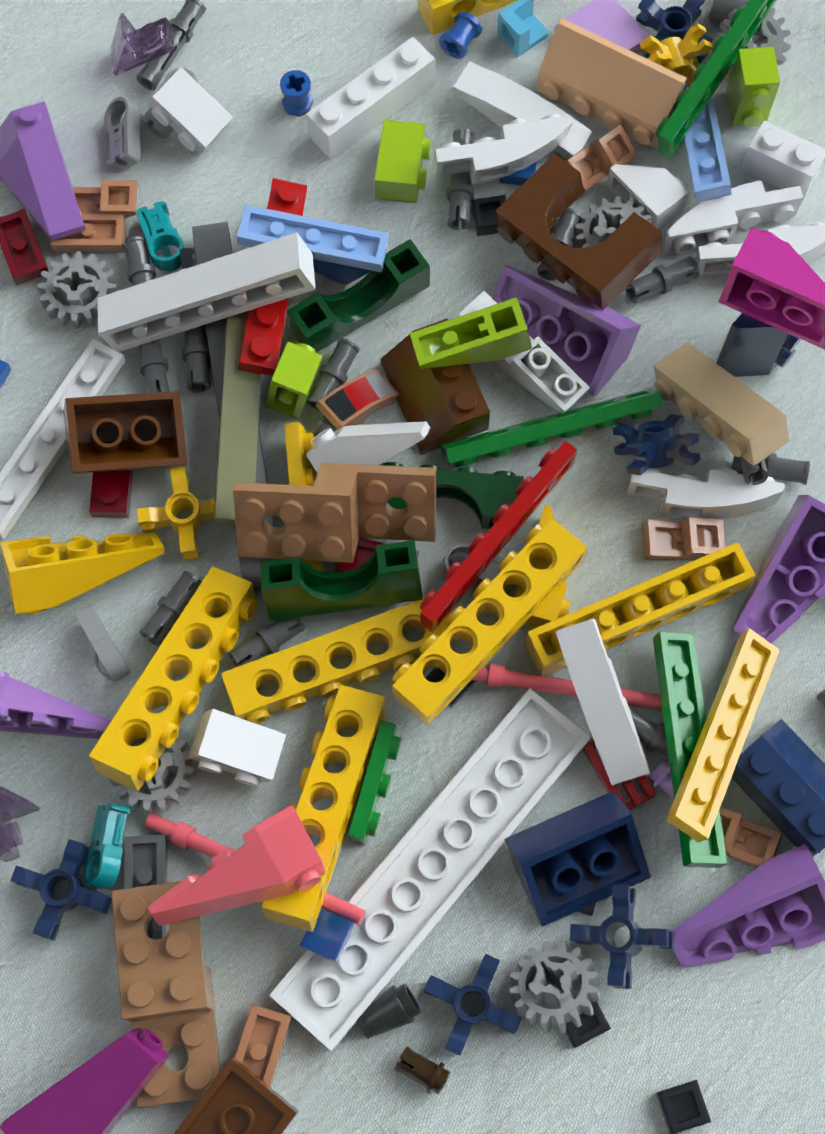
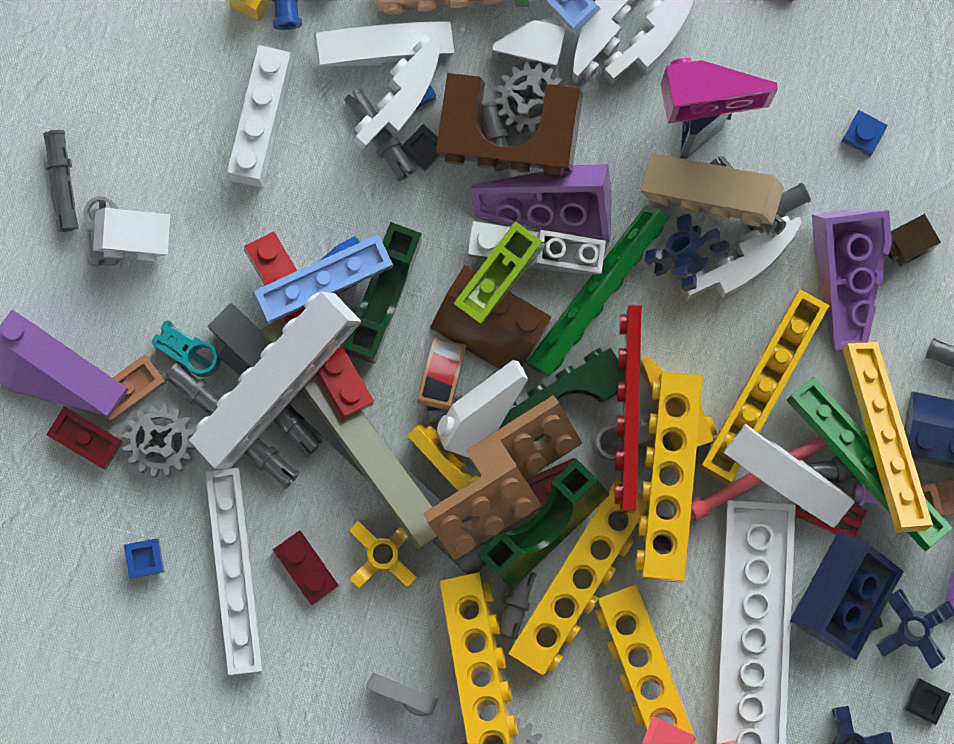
camera: 40 degrees left, 10 degrees up
(51, 573) = (327, 663): yellow wedge -> none
(110, 198) = (121, 350): nougat slope -> none
(123, 135) = (91, 290): light grey piece -> none
(124, 432) = (297, 531): reddish brown slope -> none
(136, 47) = (41, 203): clear purple slope -> none
(170, 608) = (429, 631): dark grey pin -> none
(236, 747) = (559, 696): white brick -> none
(293, 379) = (390, 395): lime brick -> none
(295, 88) = (193, 144): blue bush -> none
(334, 373) = (406, 365): dark grey pin -> none
(375, 783) = (672, 648): green plate -> none
(400, 161) = (324, 154): lime brick -> none
(544, 1001) = (893, 708): light grey gear -> none
(602, 154) = (473, 39): nougat slope -> none
(662, 279) = (594, 108): dark grey pin -> none
(682, 540) = (753, 306): nougat slope -> none

